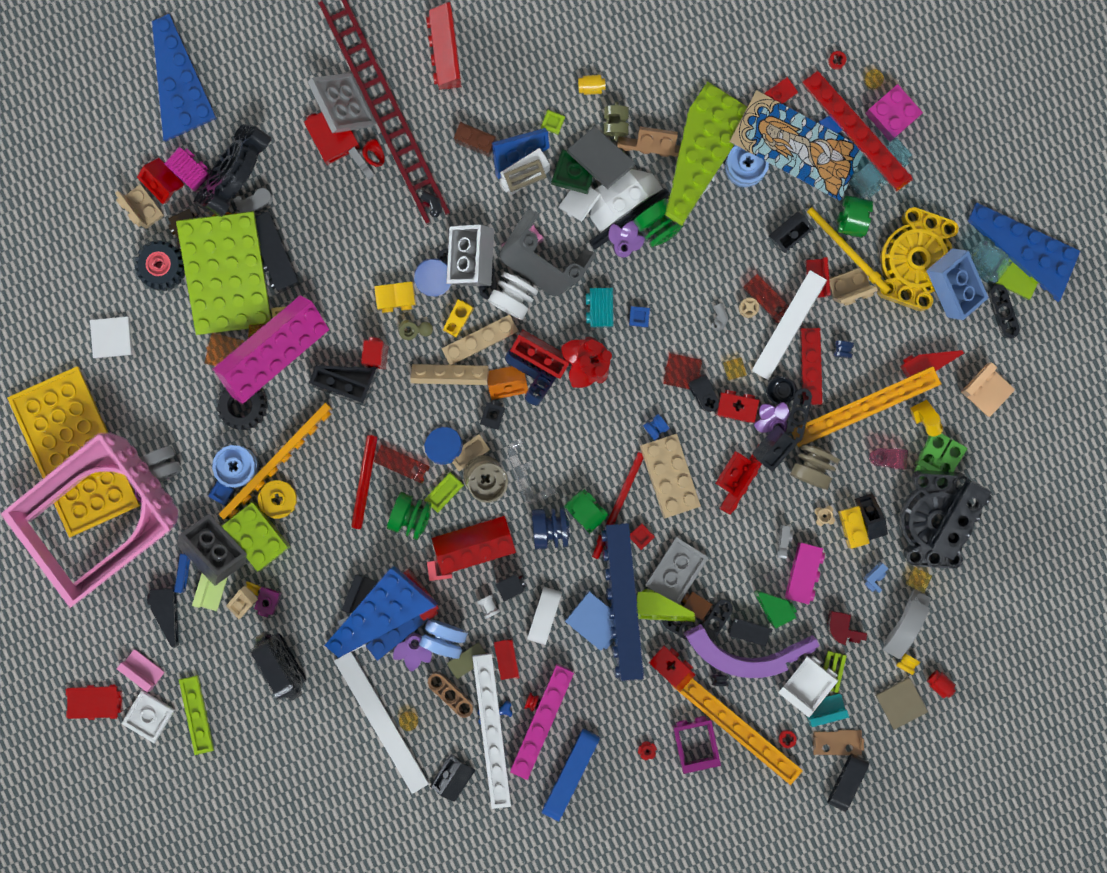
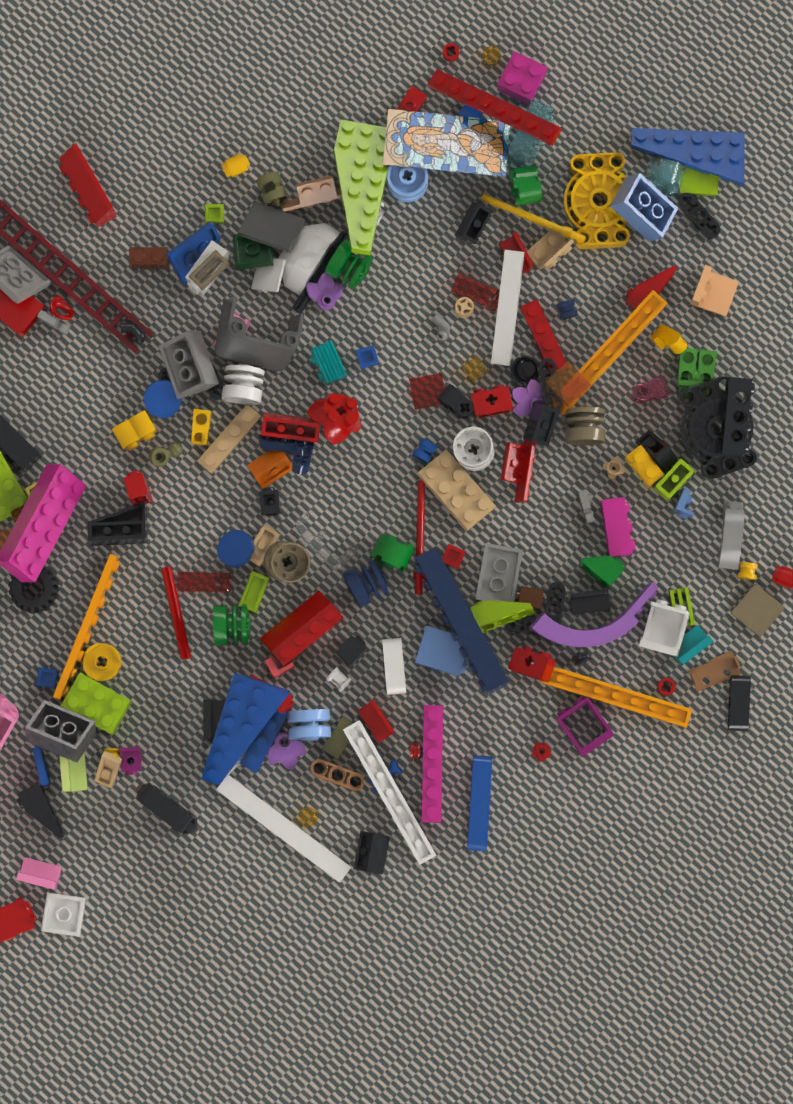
camera: 20 degrees left, 5 degrees down
(196, 715) = (108, 894): lime tile -> none
(224, 466) = (39, 643): light blue wheel -> none
(449, 374) = (214, 481): tan plate -> none
(710, 437) = (477, 438): none -> white wheel
(815, 420) = (567, 383): none -> clear orange piece
(839, 629) = (670, 565): dark red brick -> none
(876, 551) = (674, 480): none -> lime brick
(918, 579) = (724, 490): clear yellow plate -> none

